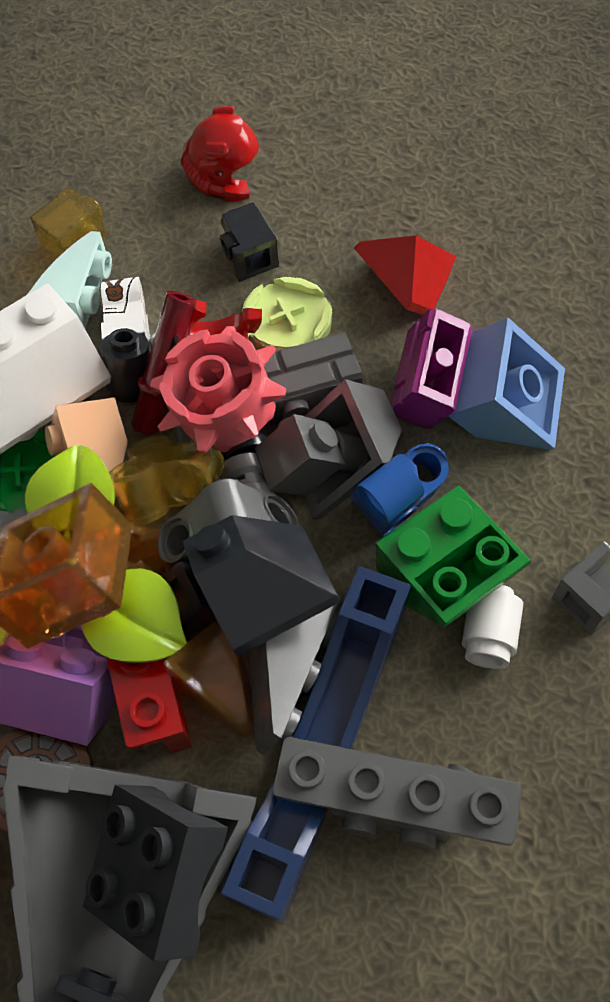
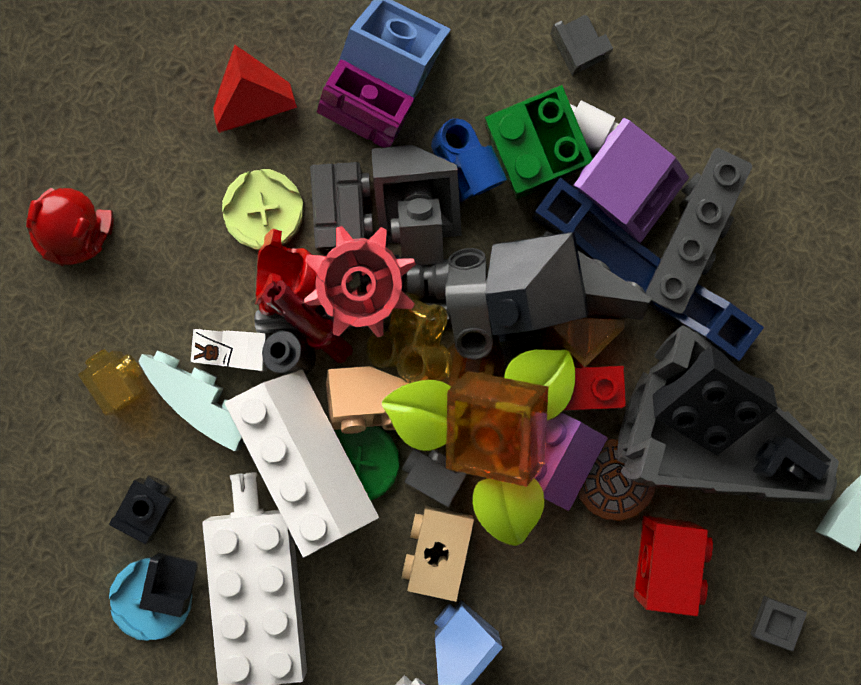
camera: 80 degrees left, 25 degrees up
(248, 241) = (176, 224): black brick -> none
(437, 681) = (632, 179): none -> medium lavender slope

